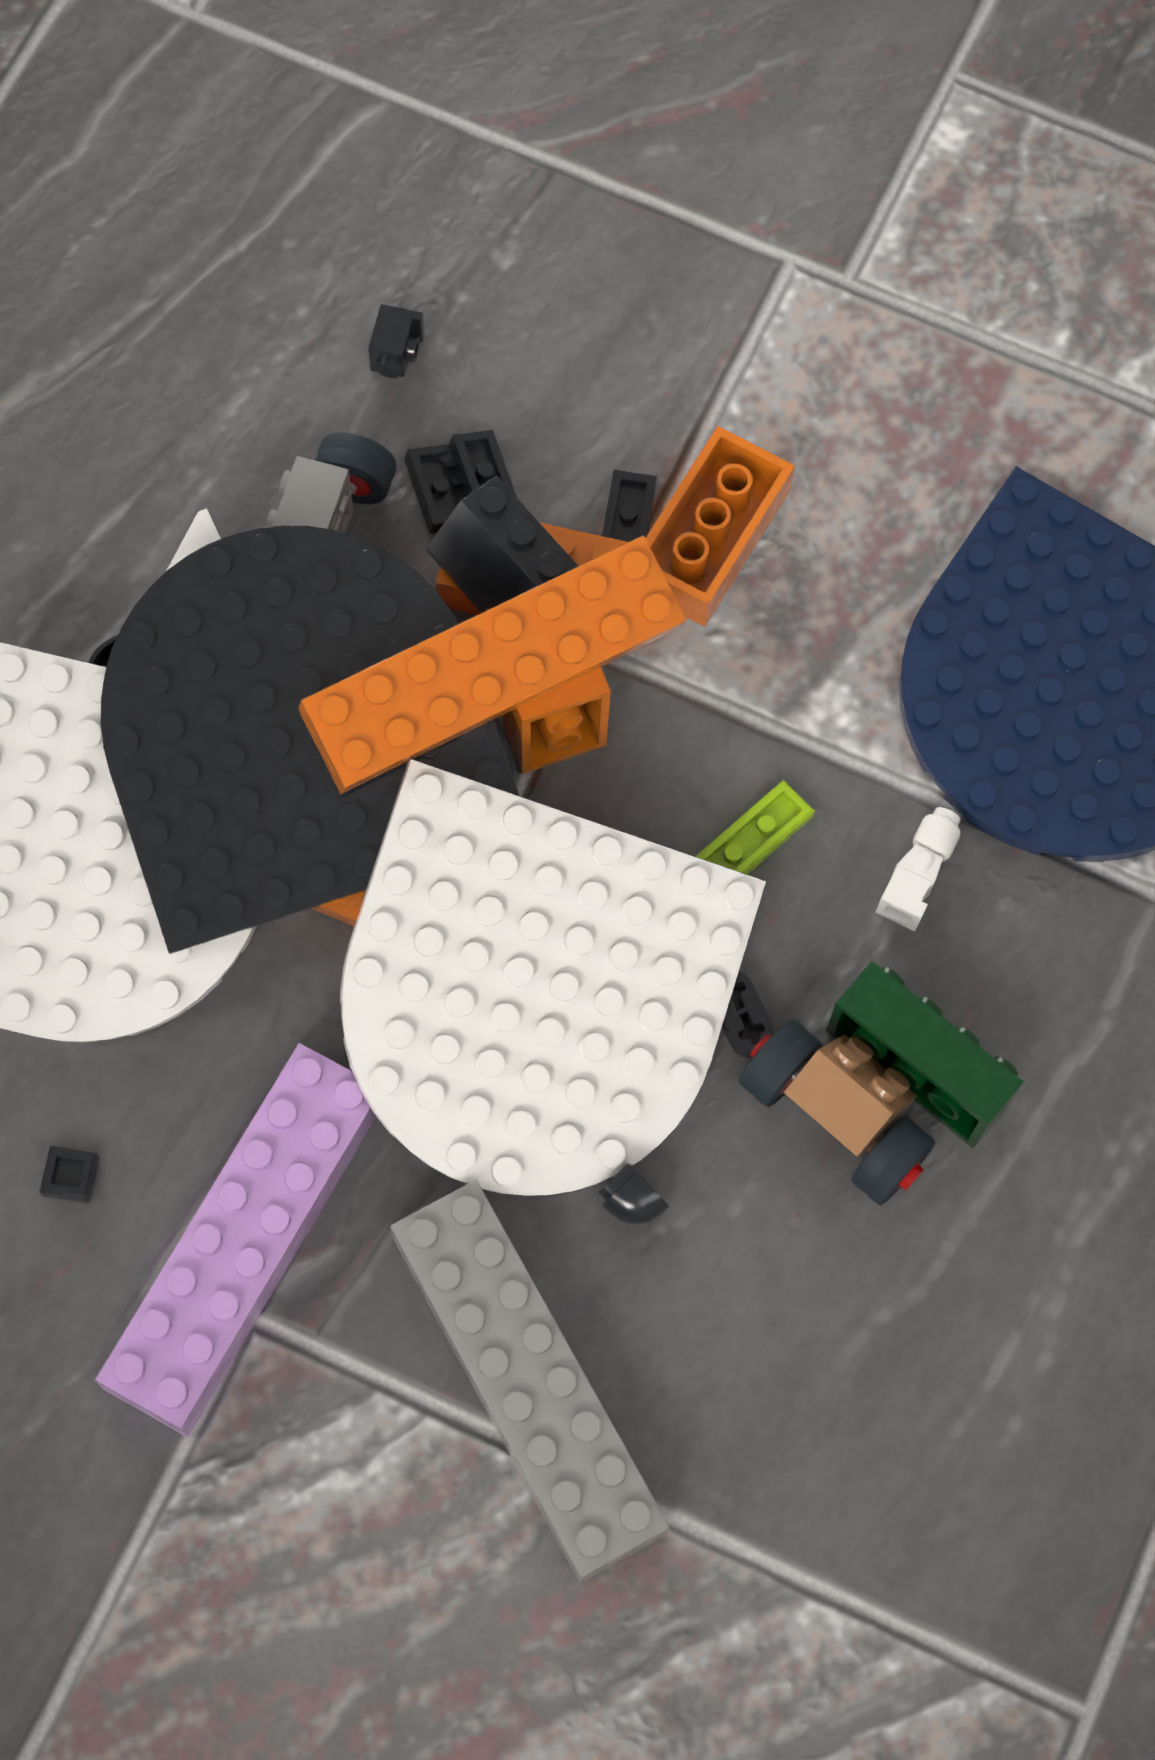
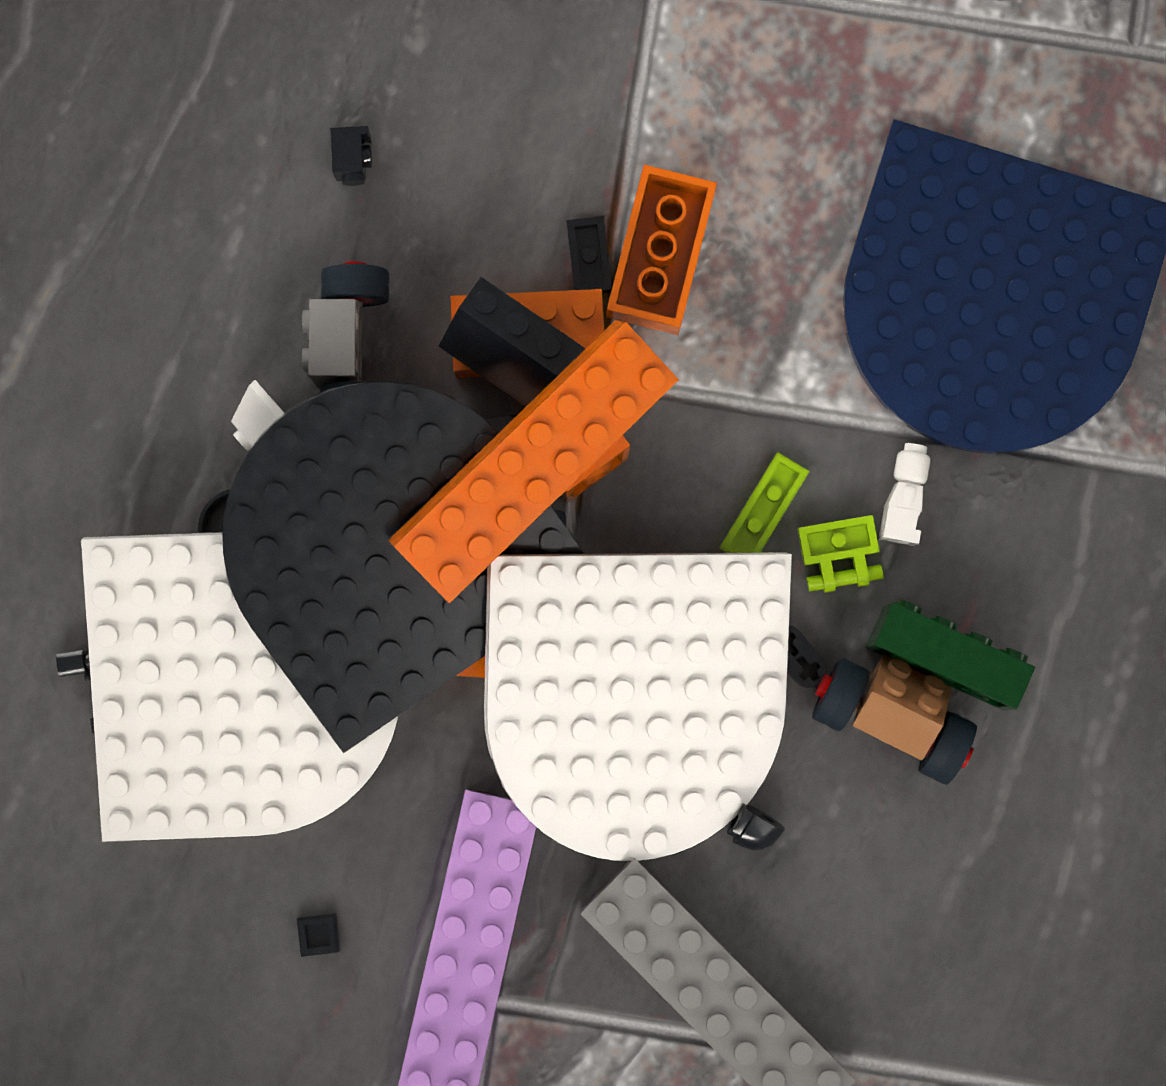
camera: 15 degrees left, 15 degrees up
(453, 471) = (442, 262): black slope -> none
(827, 897) = (840, 541): none -> lime plate

